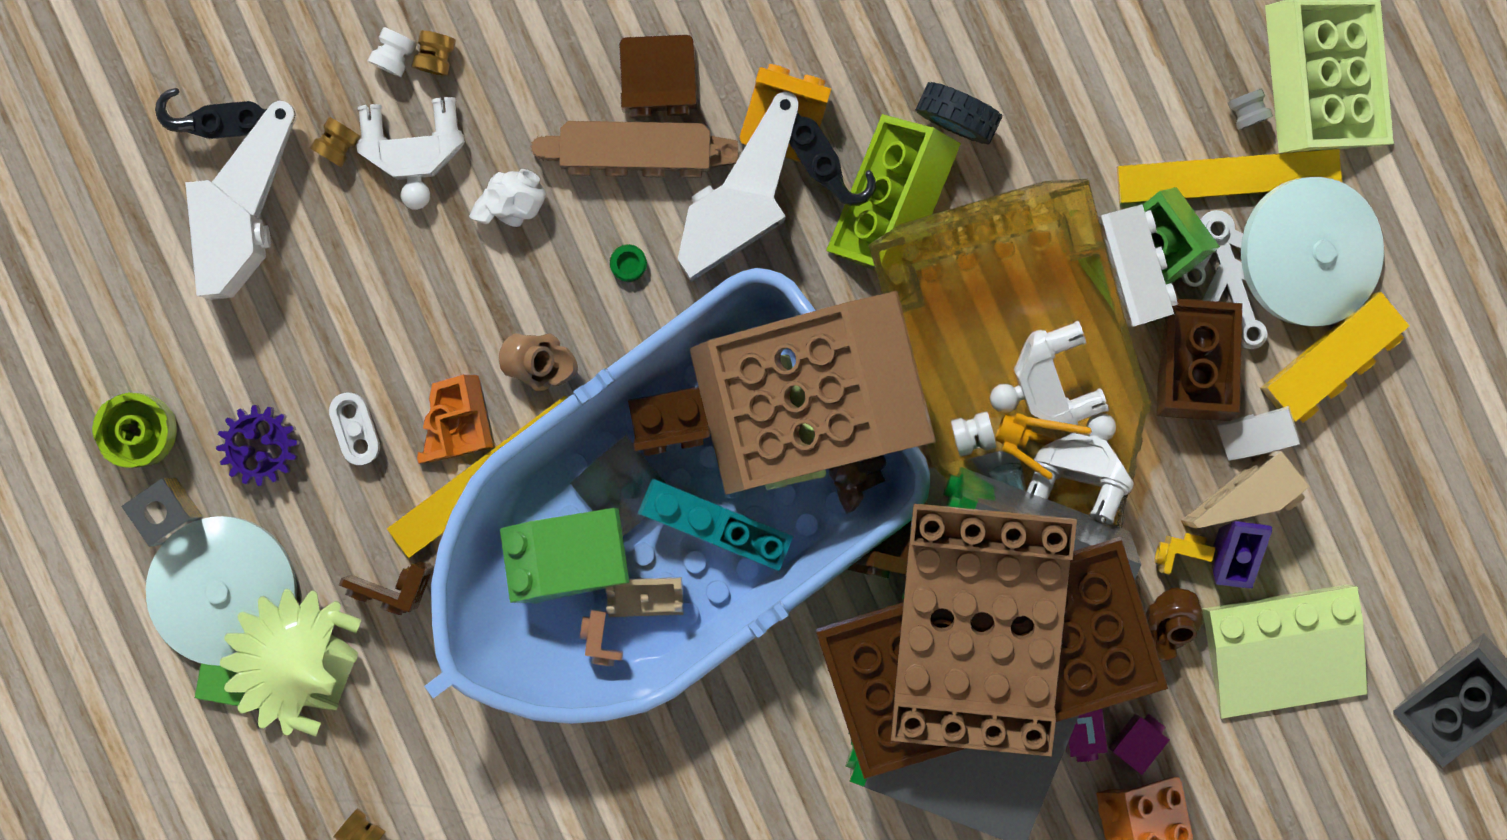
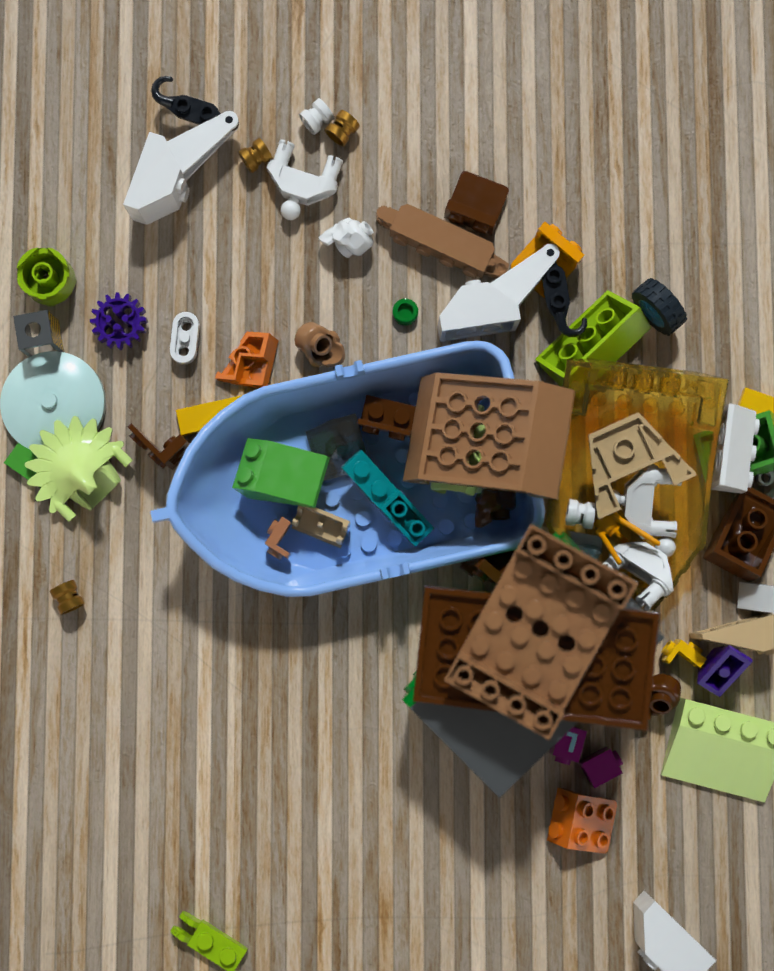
camera: 20 degrees right, 5 degrees down
(994, 331) = (624, 450): none -> tan wing

